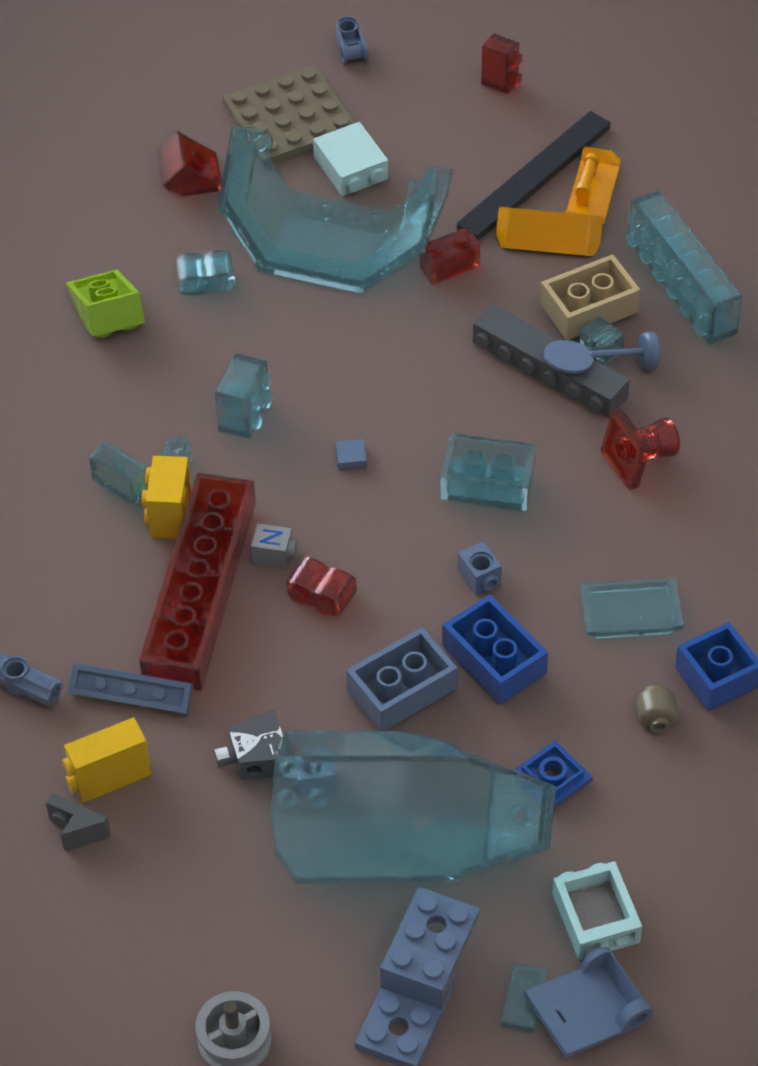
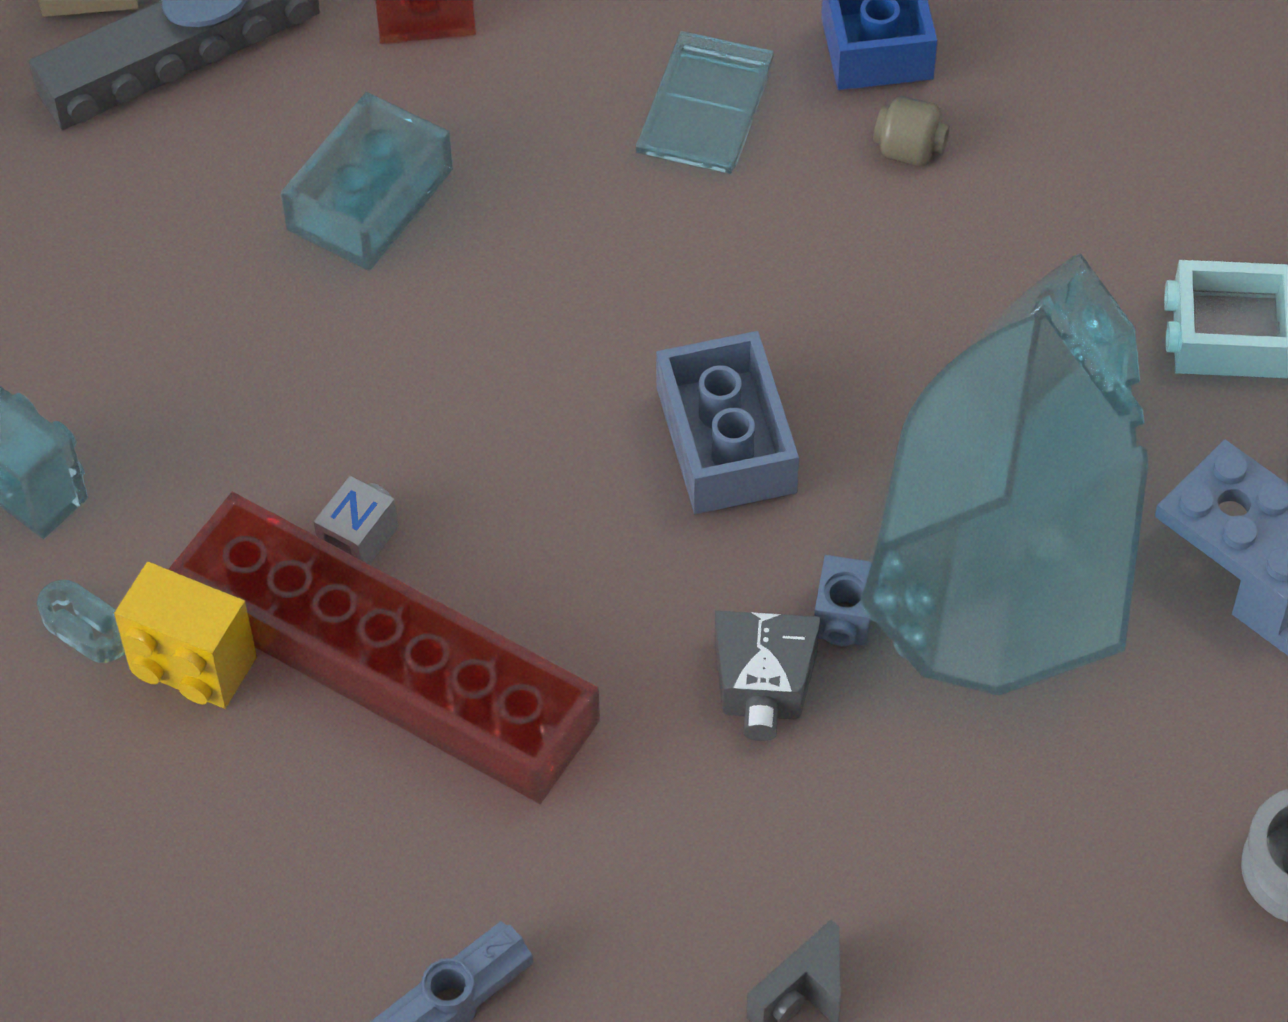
camera: 70 degrees left, 5 degrees up
(106, 760) = (715, 887): yellow brick -> none
(118, 472) = (80, 700): clear light blue brick -> none
(130, 688) = (556, 821): sand blue plate -> none
(321, 586) = (476, 481): clear red brick -> none
(351, 454) = (210, 361): sand blue tile -> none
(479, 568) = (547, 258): sand blue brick -> none
(495, 649) = (723, 281): blue brick -> none
(555, 757) = (957, 315): blue piece -> none

